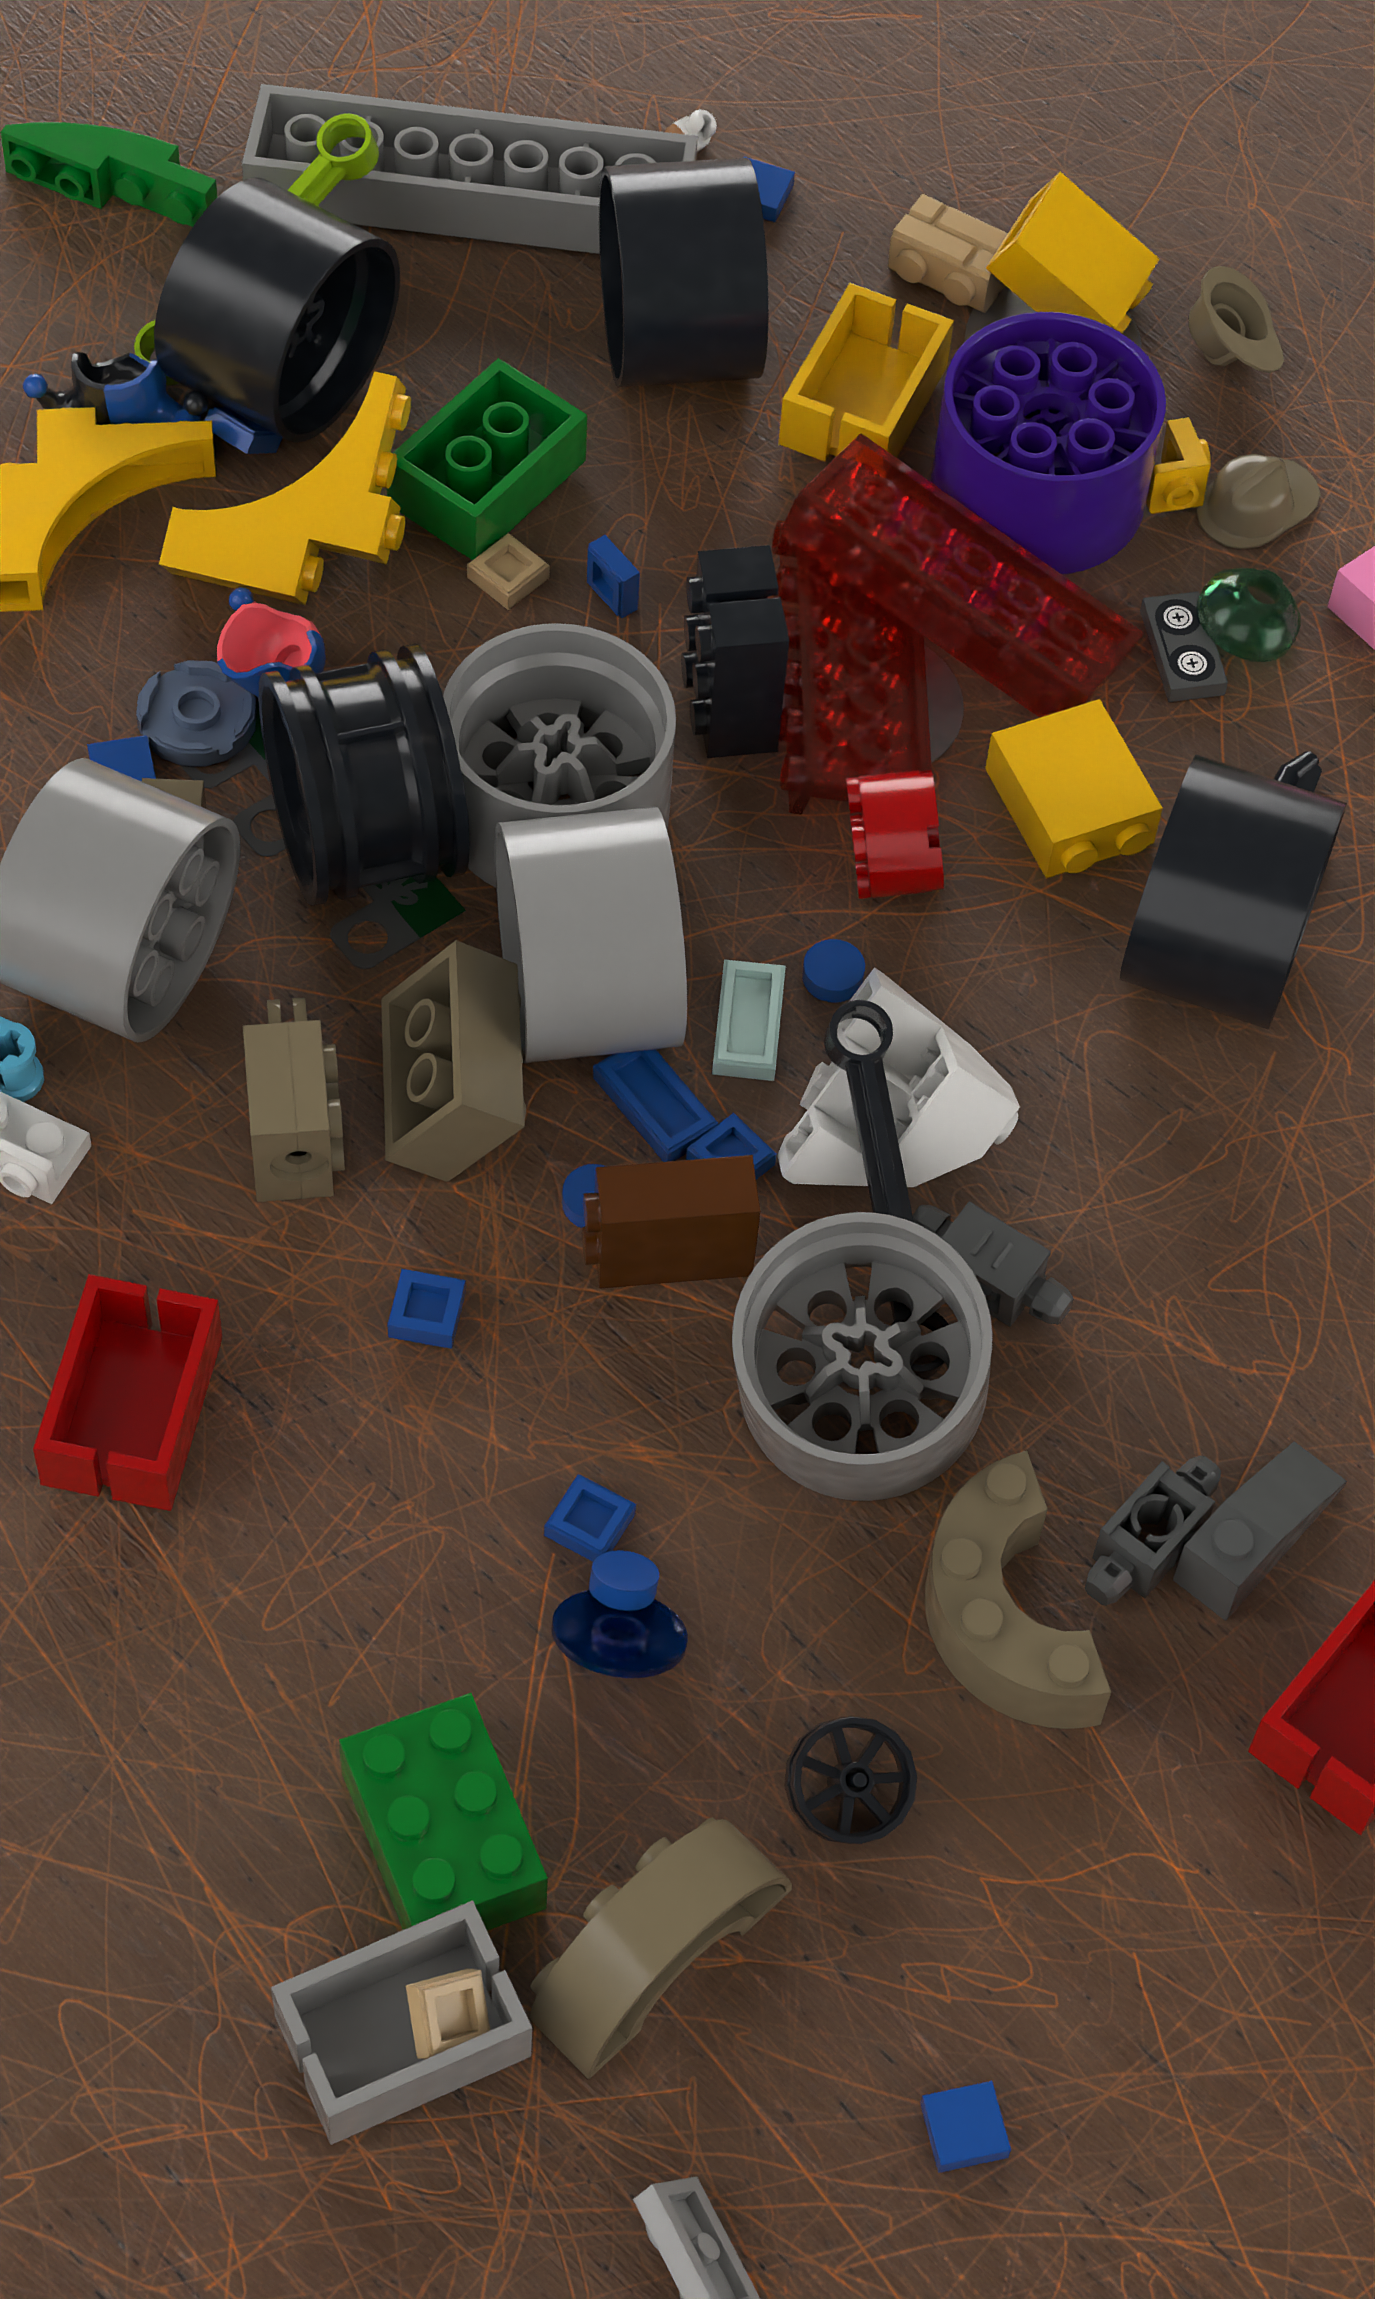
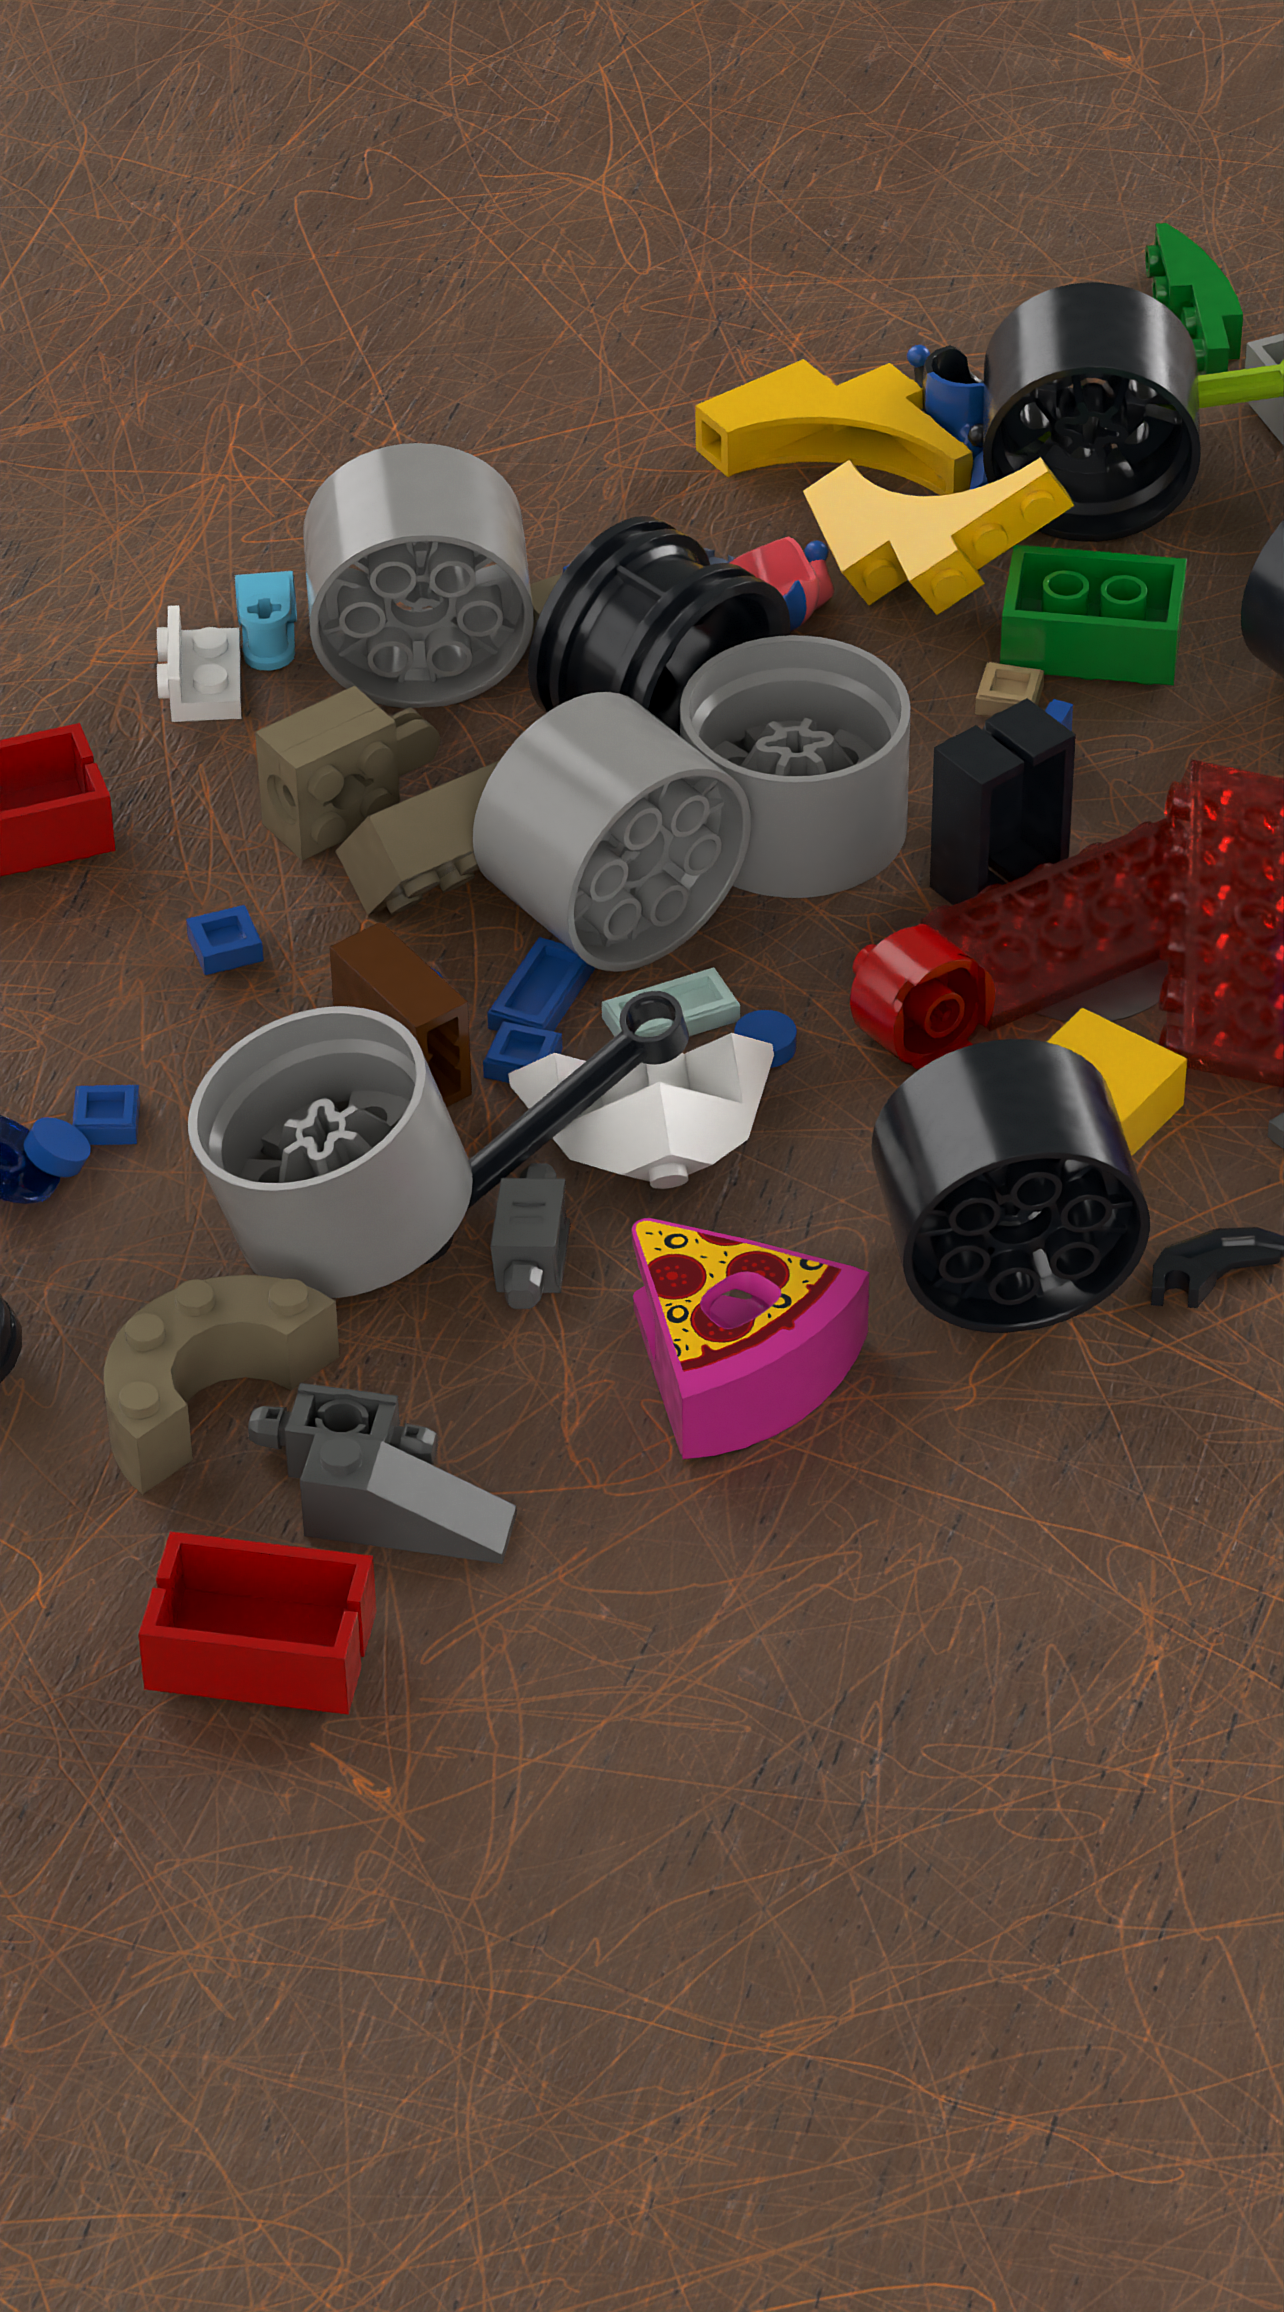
camera: 65 degrees right, 15 degrees down
(1222, 1179) = (734, 1364): none -> dark pink piece

